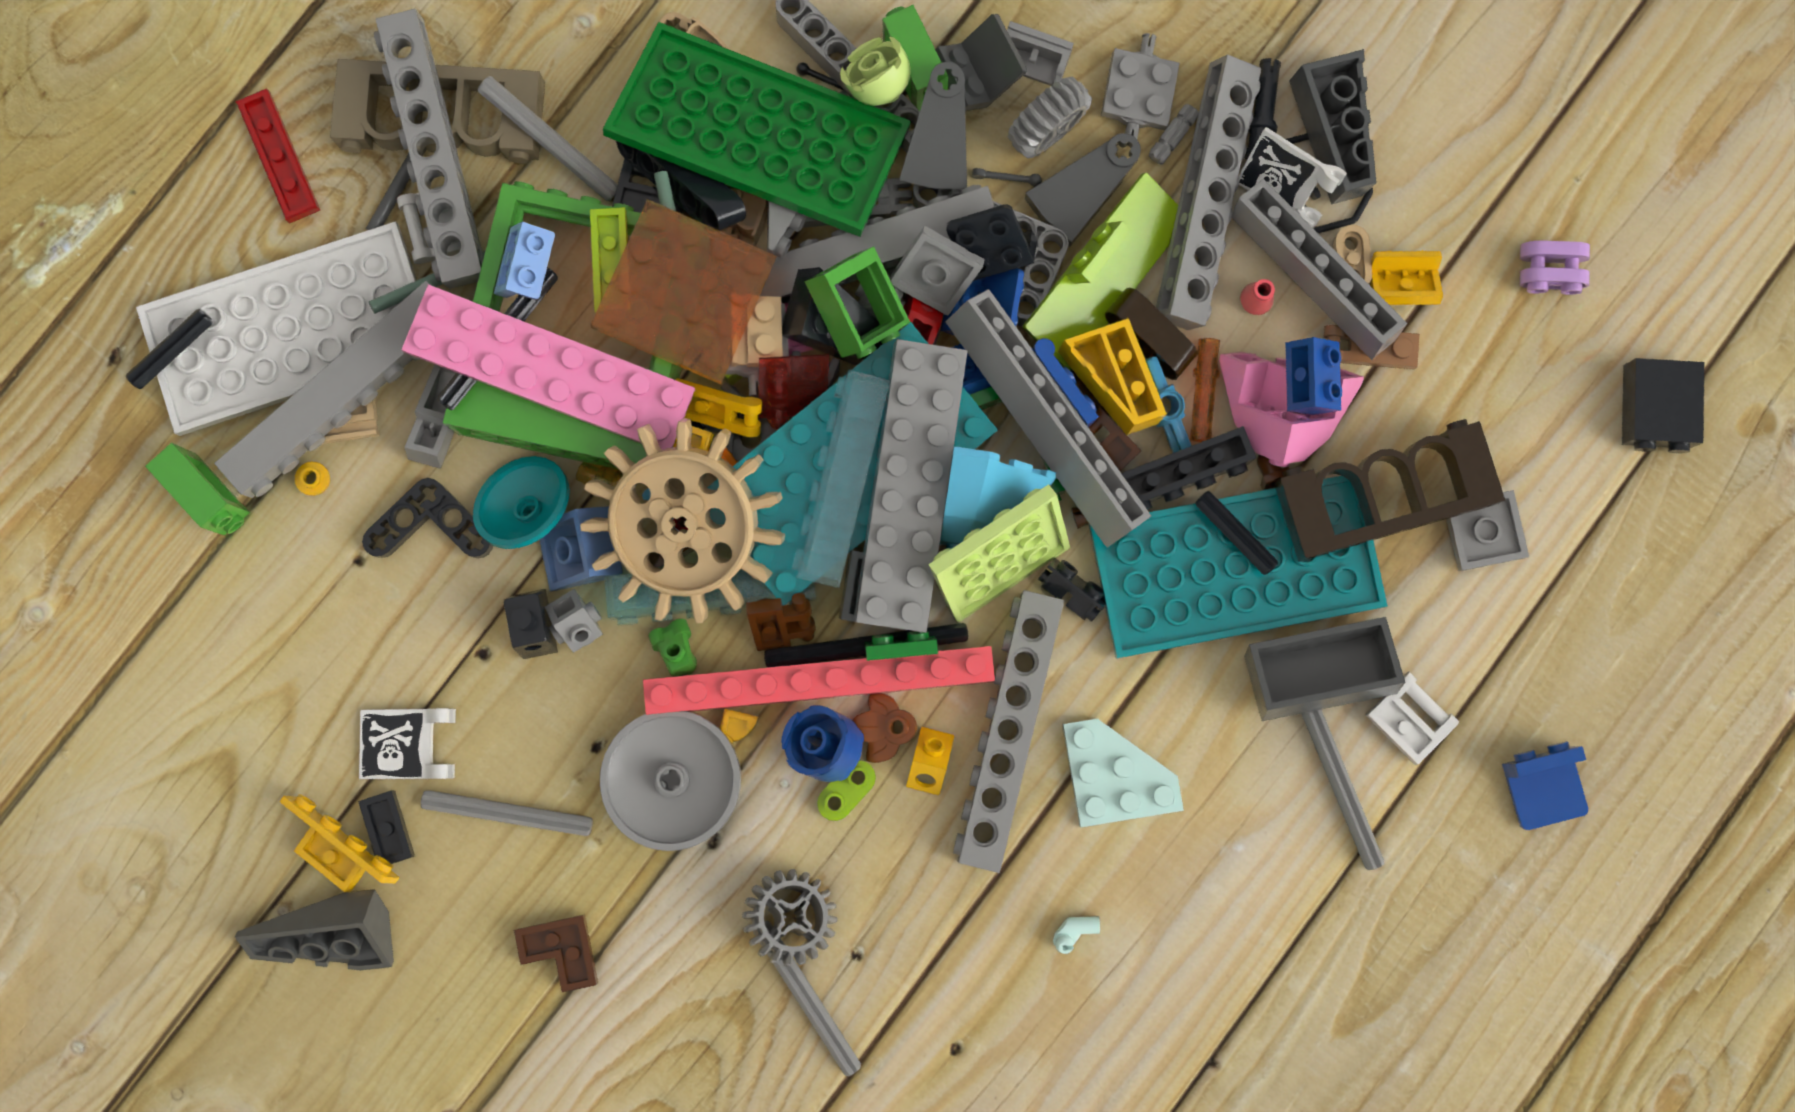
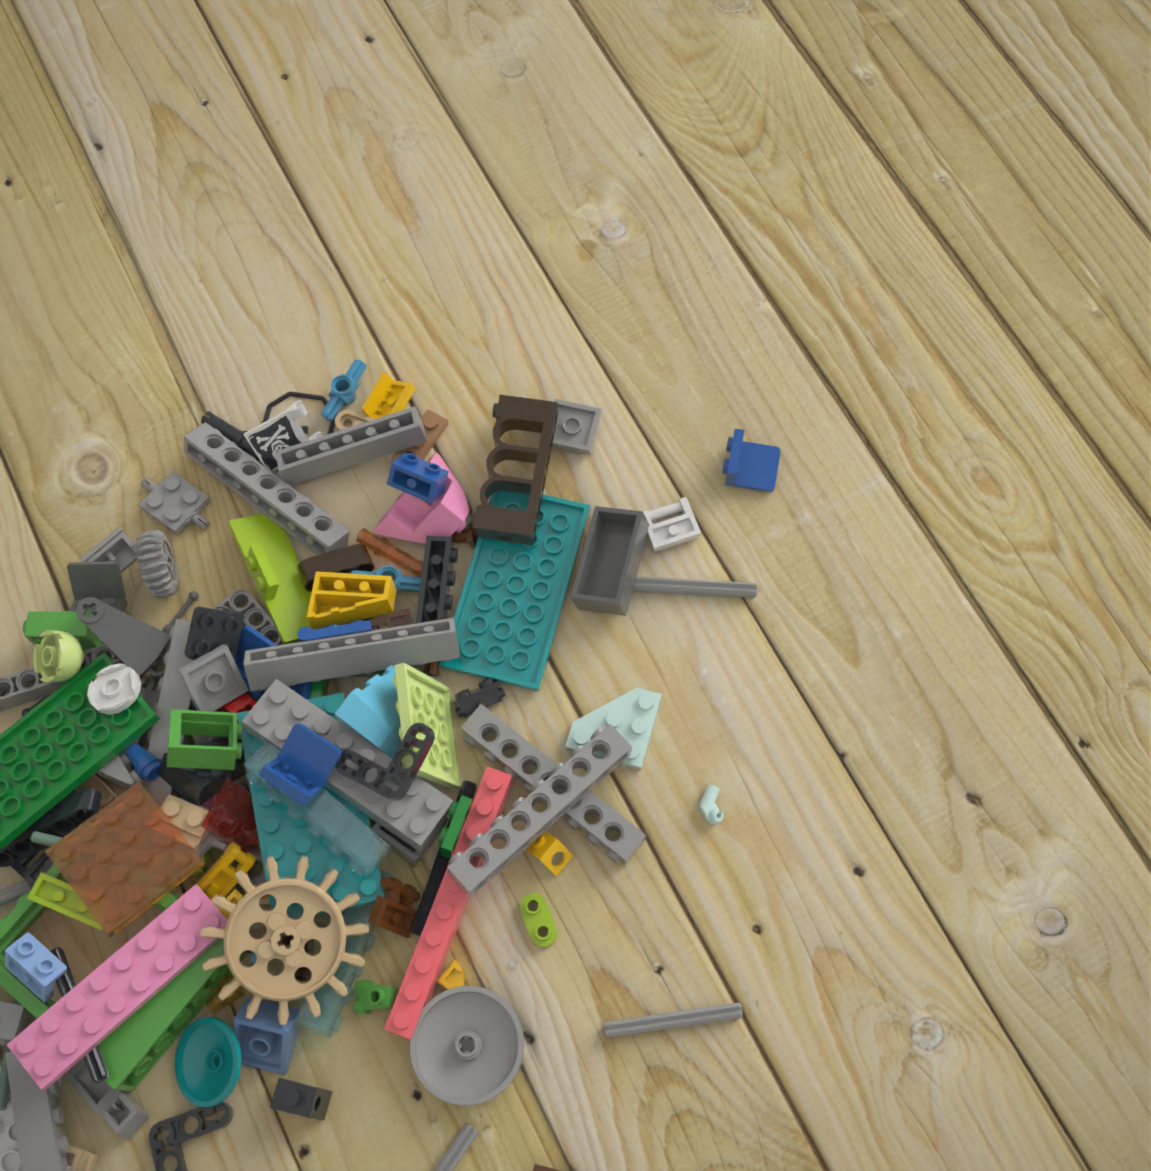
camera: 60 degrees left, 15 degrees down
(574, 621) = (315, 1063): light grey brick -> none
(802, 925) = (626, 991): light grey gear -> none
(803, 247) = (144, 762): none -> blue cone
(822, 744) = (496, 918): blue brick -> none
(869, 162) = (114, 689): none -> white tile
(877, 439) = (302, 765): none -> blue bracket
(878, 727) = (512, 876): dark orange plate -> none
(919, 553) = (394, 772): none -> black beam
(1080, 190) = (215, 565): dark grey piece -> none
(1082, 791) = (472, 878): none -> light grey brick
(1173, 134) = (216, 496): light grey axle -> none
(1236, 533) = (494, 573): black axle -> none
(1253, 301) = (349, 491): coral cone -> none
(1337, 119) = (265, 394): dark grey wedge -> none
(1408, 214) = (345, 398): none -> dark azure axle
(1541, 278) = (429, 314): lavender brick -> none
(1663, 404) = (546, 293): black brick -> none

